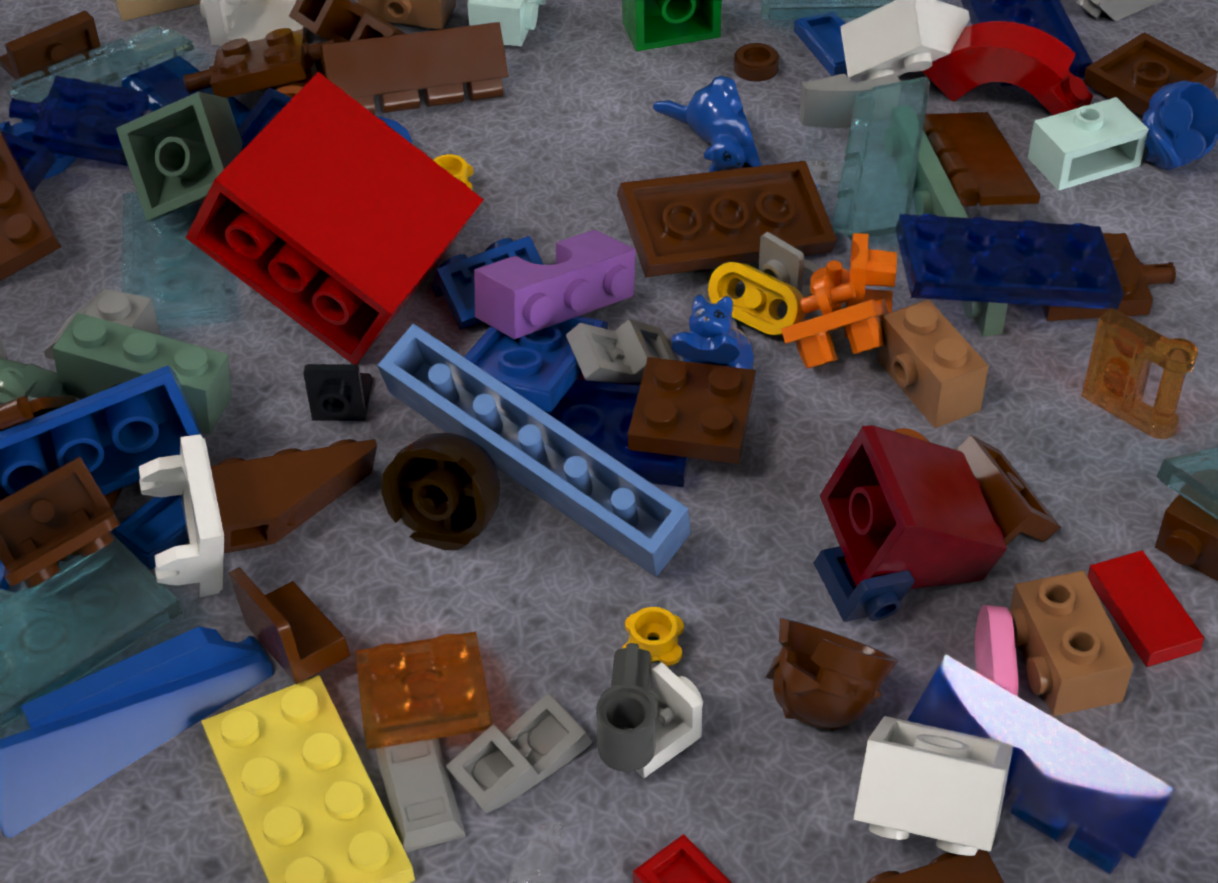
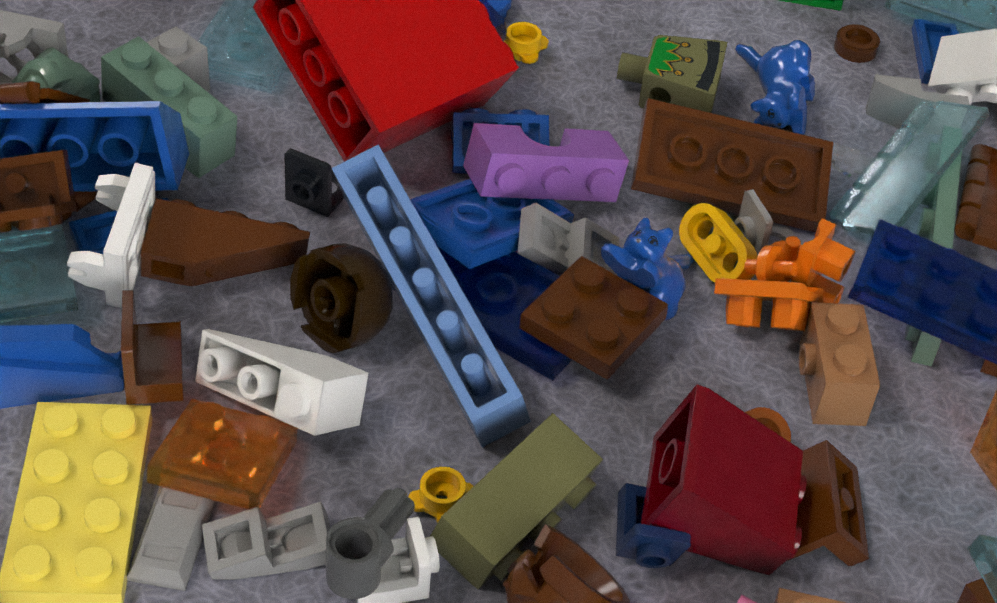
camera: 20 degrees right, 0 degrees up
(435, 595) = (283, 381): none -> white slope
(617, 150) = (677, 71): none -> olive torso
(733, 611) = (515, 501): none -> olive brick

